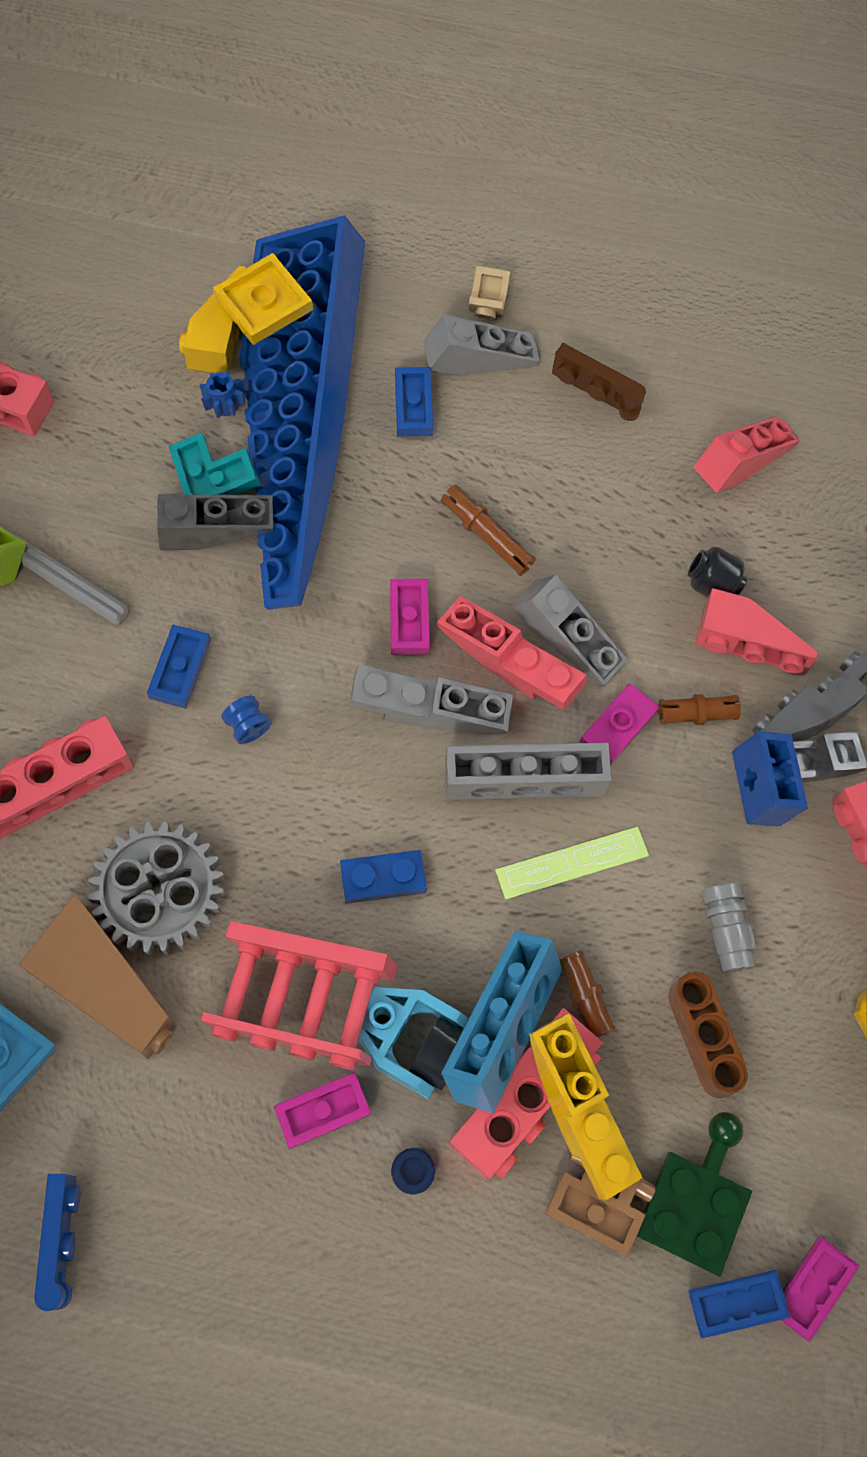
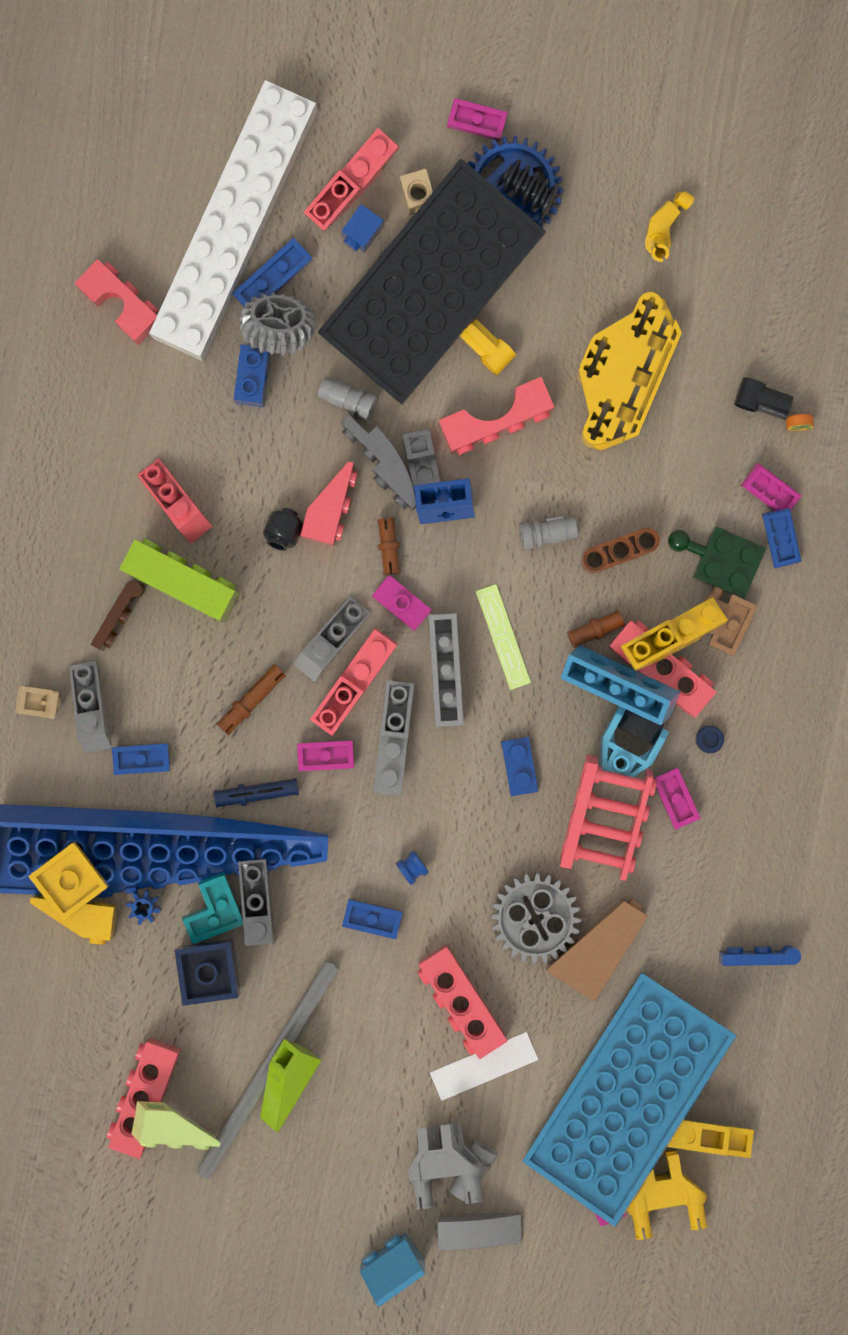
camera: 90 degrees left, 20 degrees up
(128, 457) = (207, 972): none -> dark blue brick
(358, 495) = (222, 797): none -> dark blue pin
(647, 444) = (176, 579): none -> lime brick

